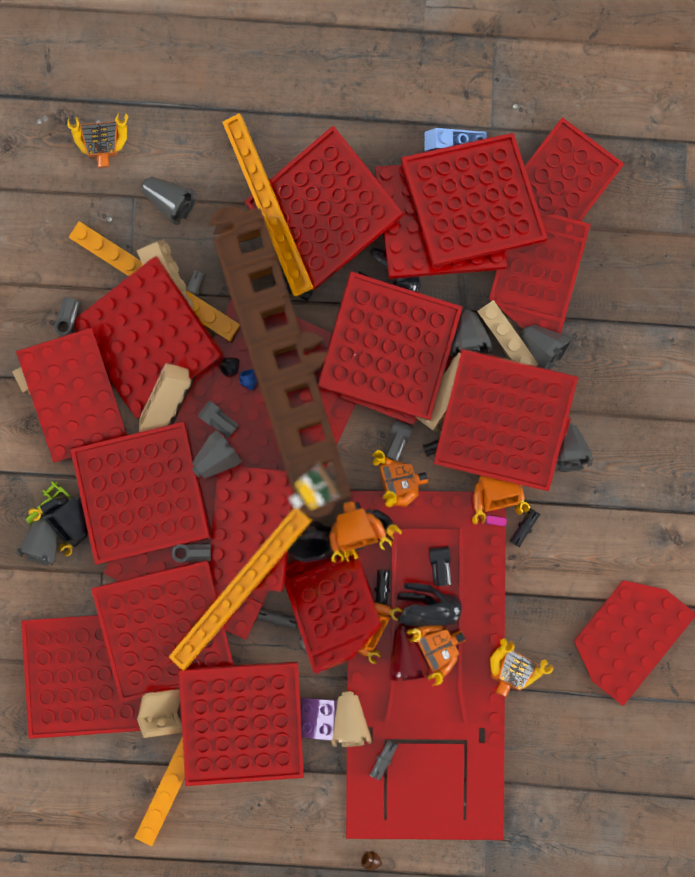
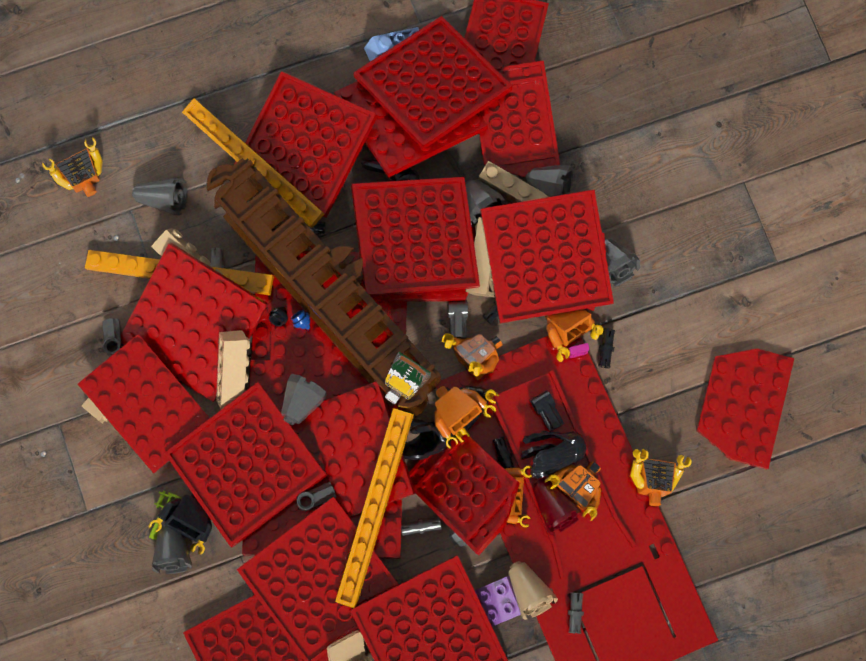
camera: 30 degrees left, 10 degrees down
(215, 417) = (283, 365): dark grey piece -> none

